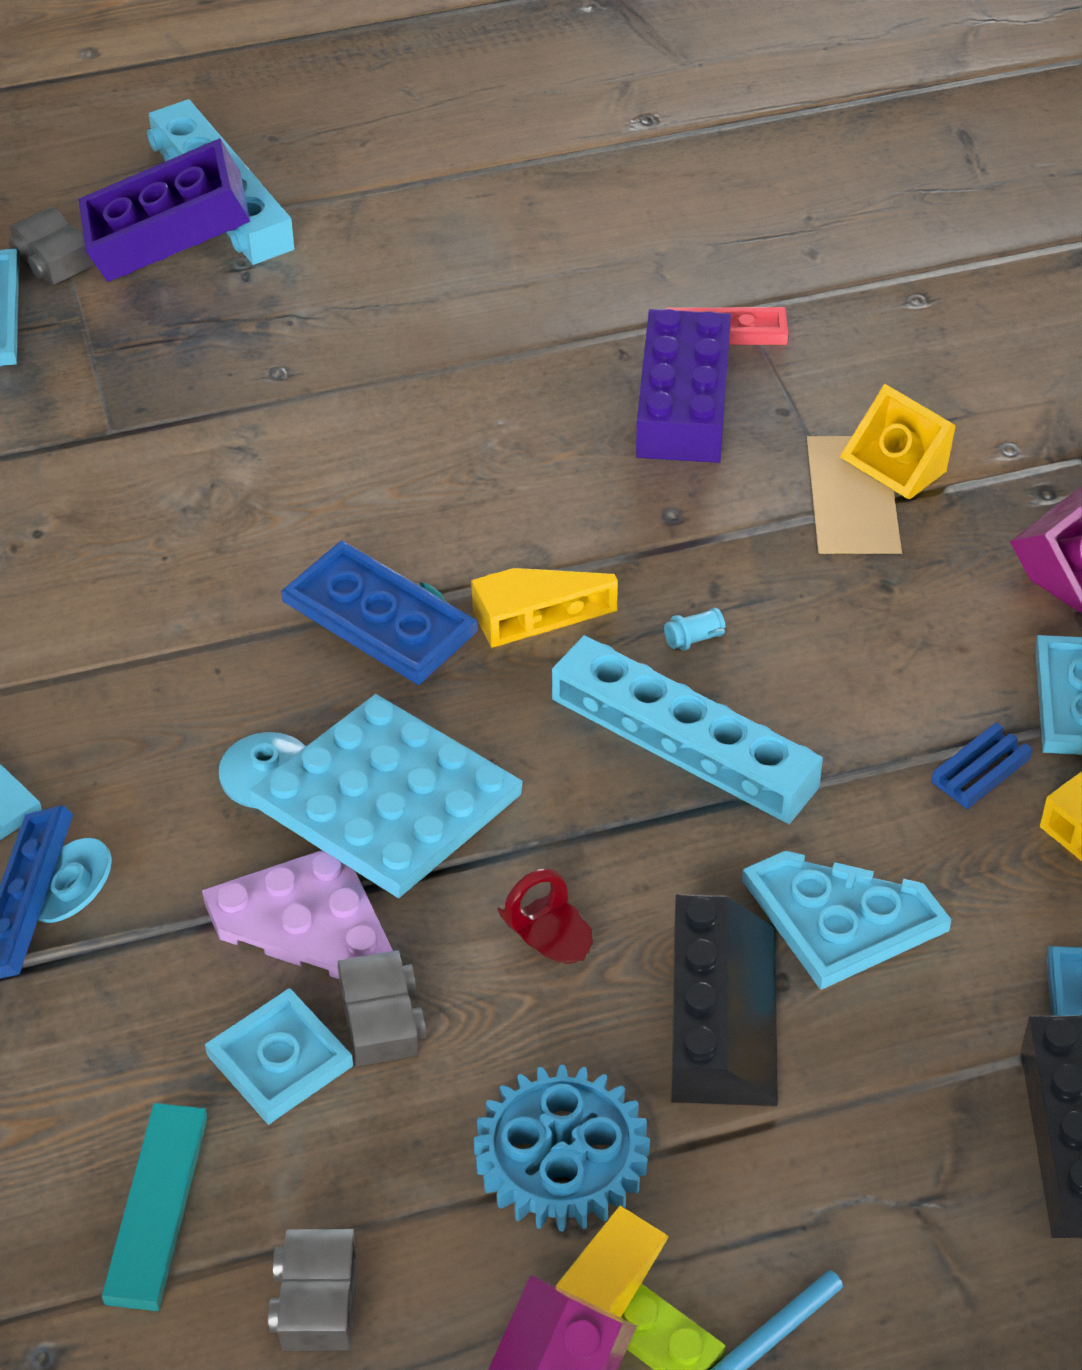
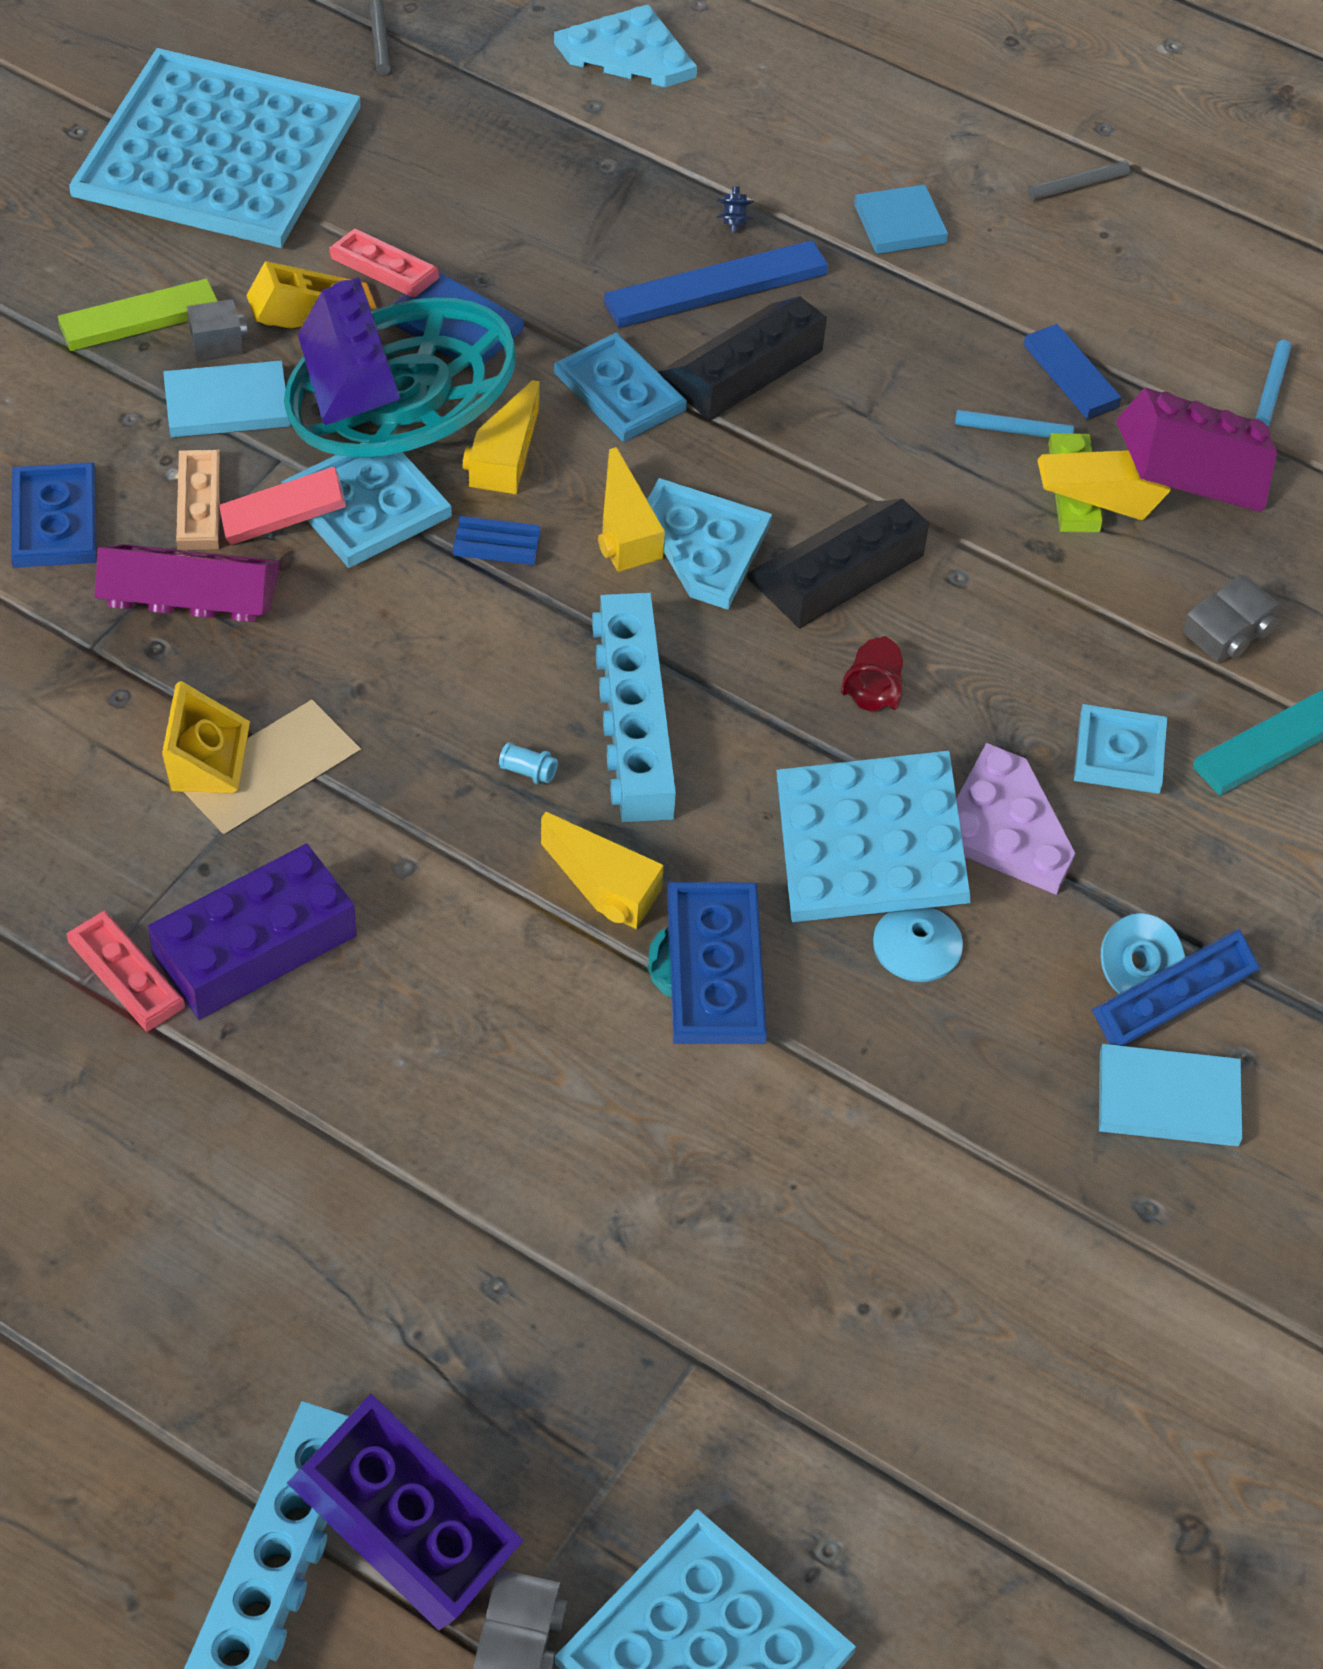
camera: 135 degrees left, 5 degrees up
(379, 1007) = (1034, 718): flat silver brick -> none
(561, 1147) = (1020, 569): dark azure gear -> none
(917, 852) = (630, 526): none -> yellow slope

